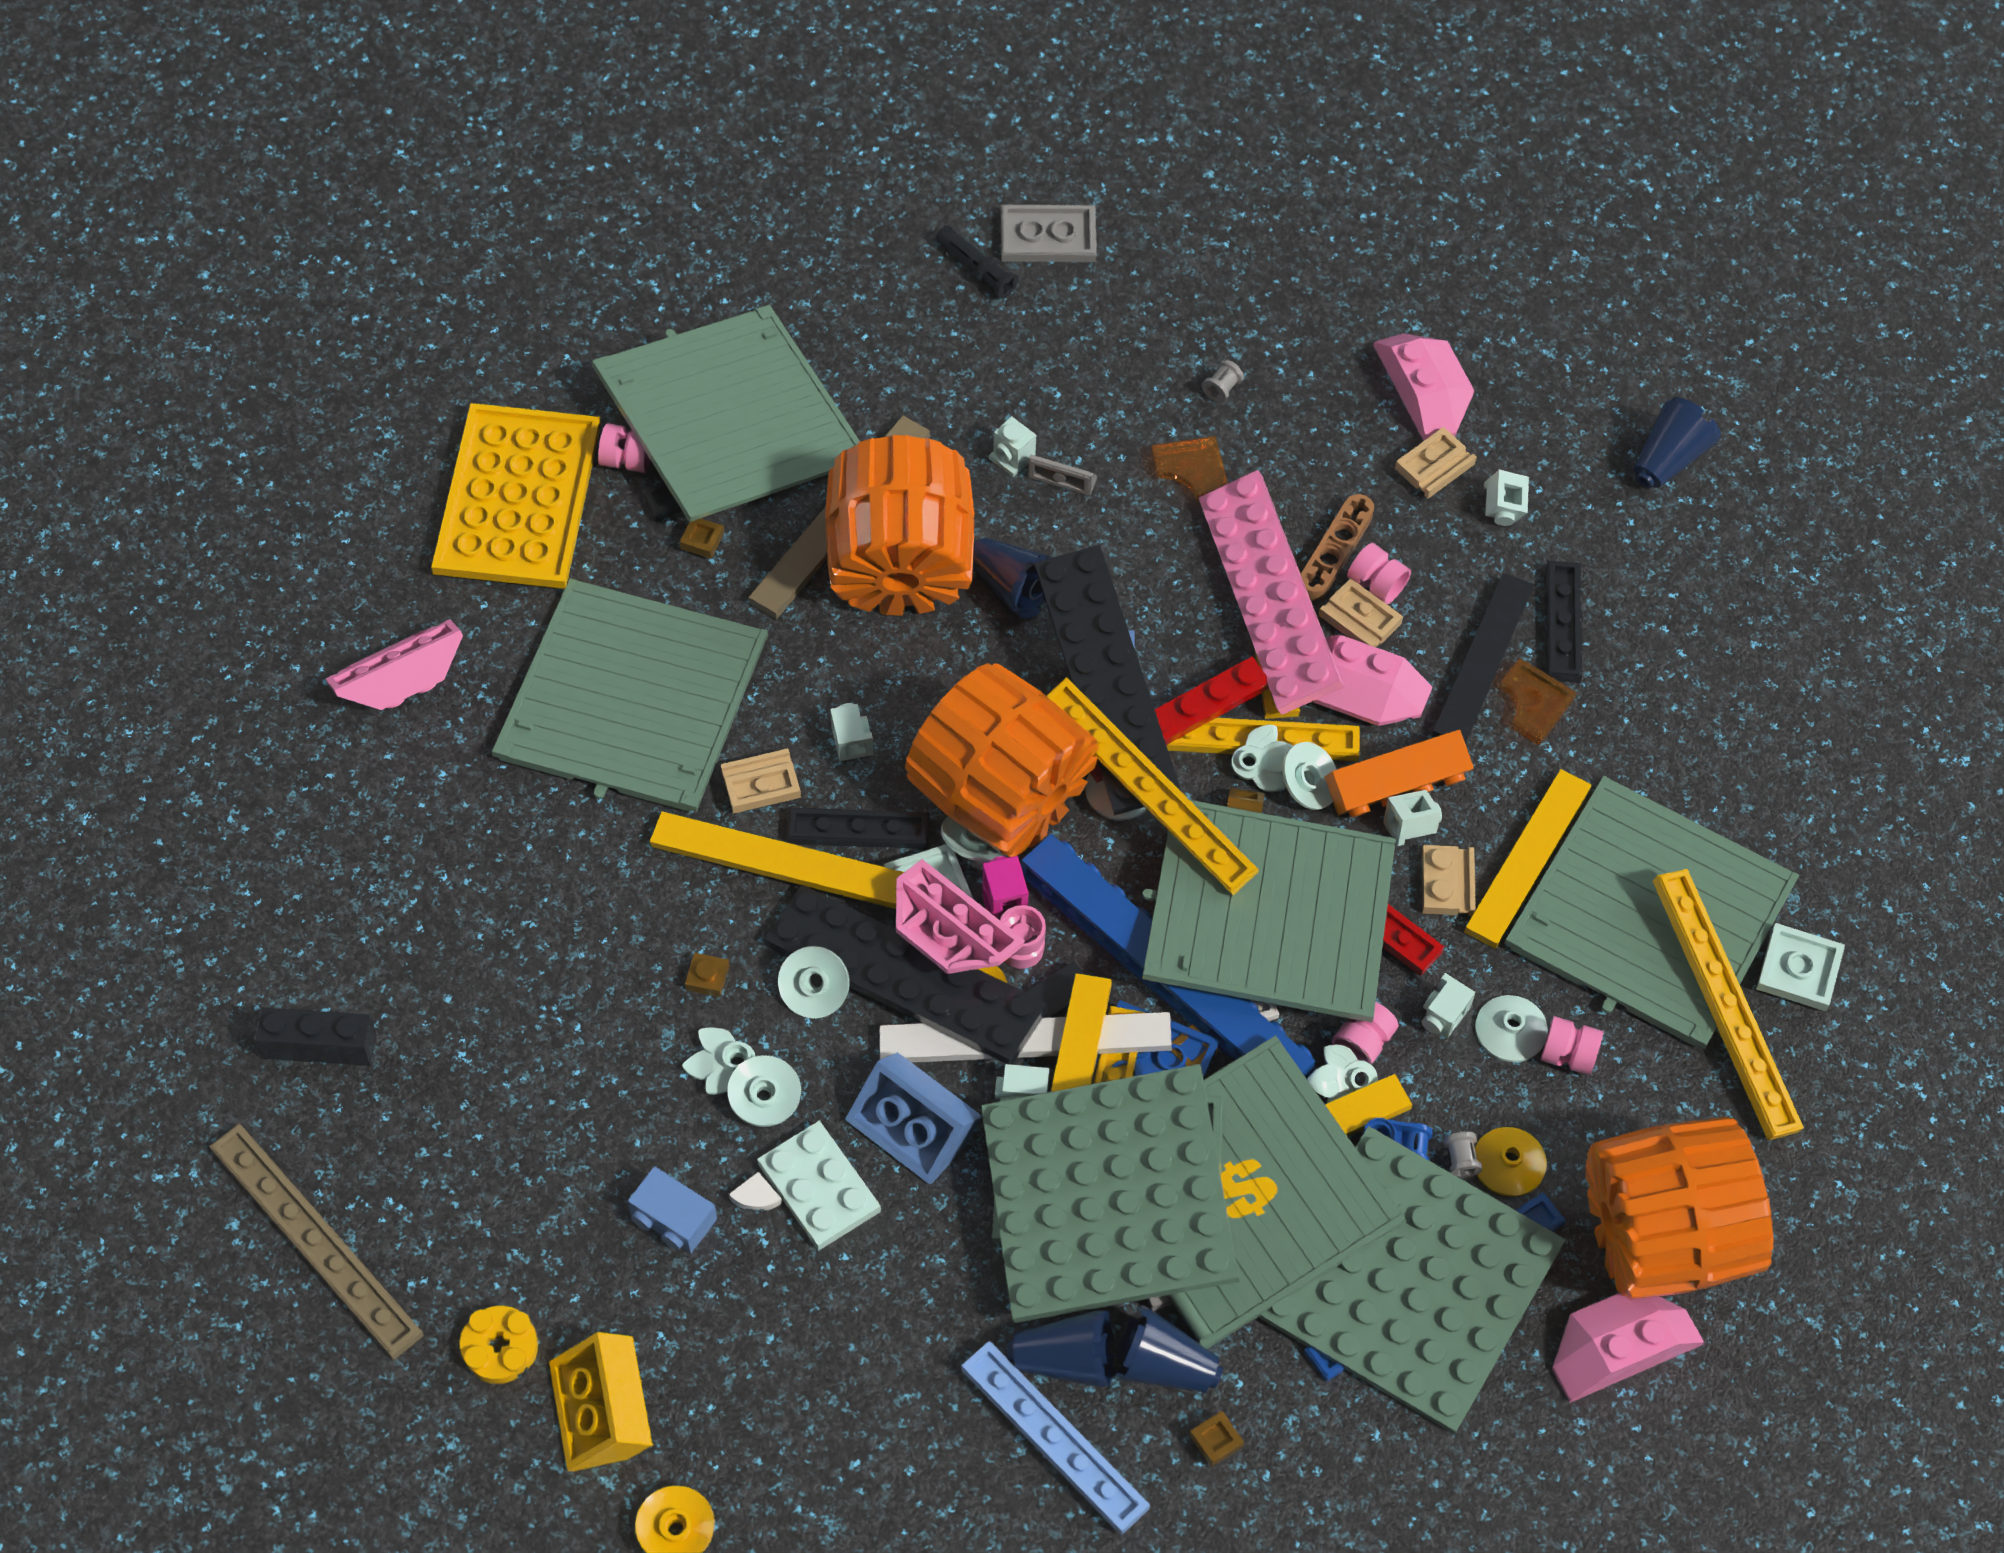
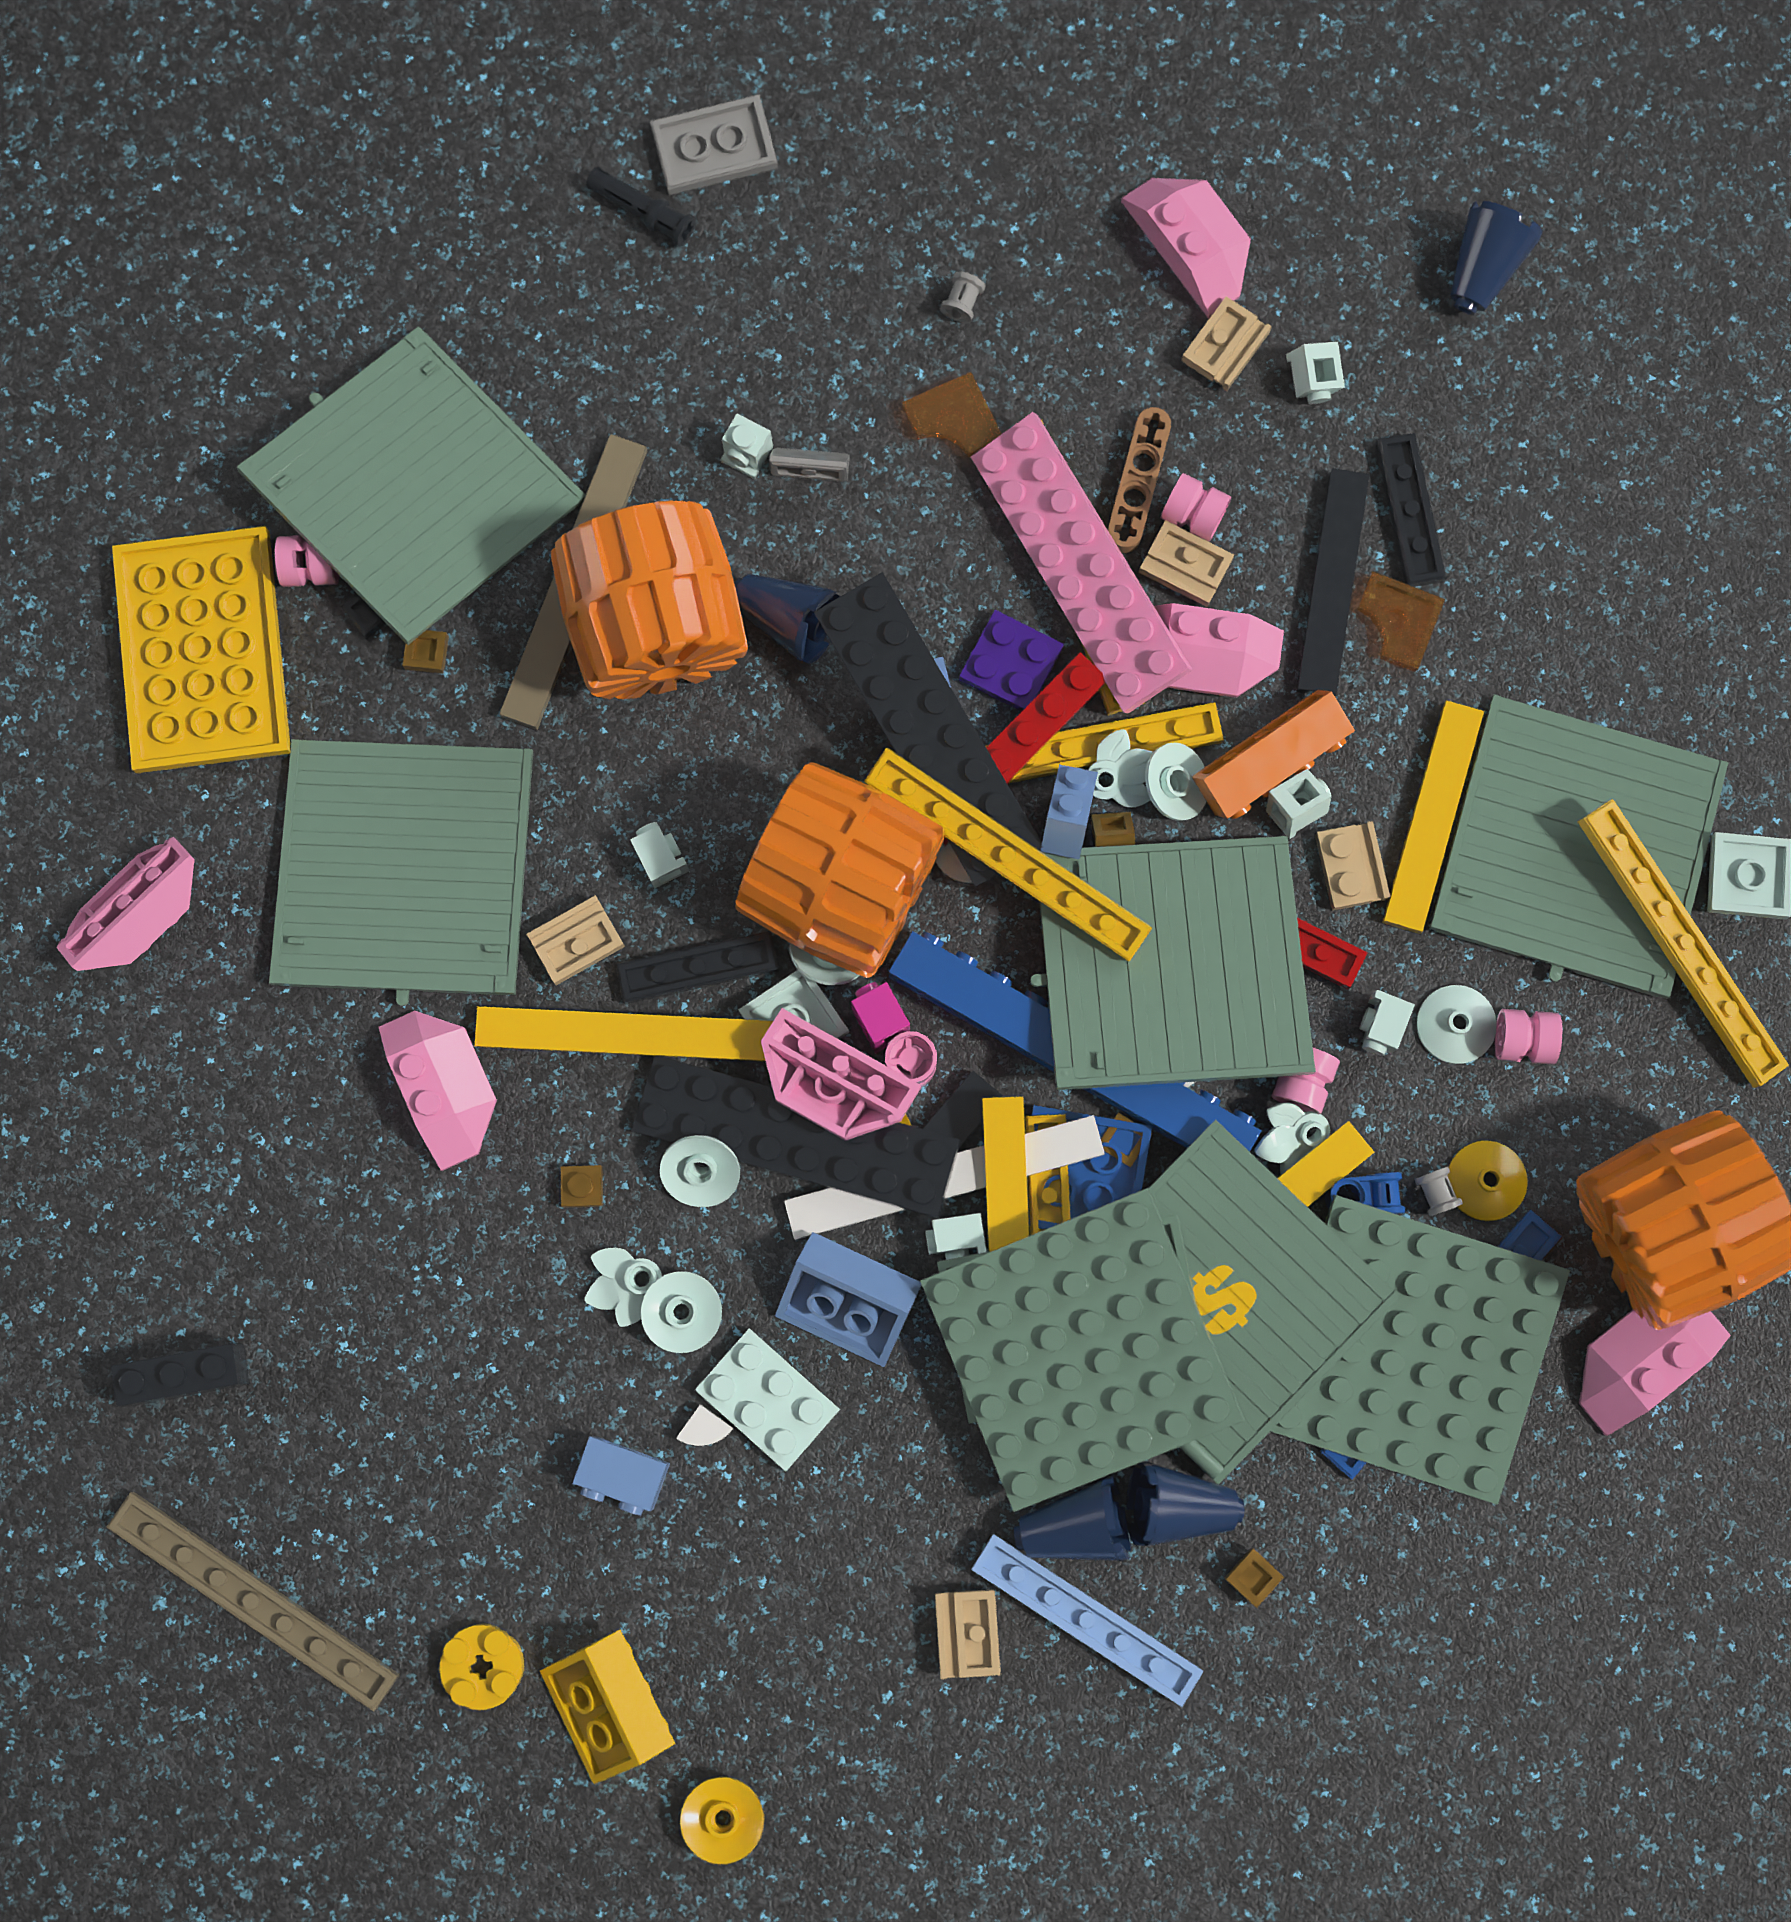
camera: 10 degrees left, 20 degrees up
(612, 867) = (440, 1084): none -> bright pink wedge
(942, 1422) = (967, 1634): none -> tan plate
(1191, 655) = (1011, 661): none -> dark purple plate
(1211, 771) = (1069, 811): none -> medium blue brick

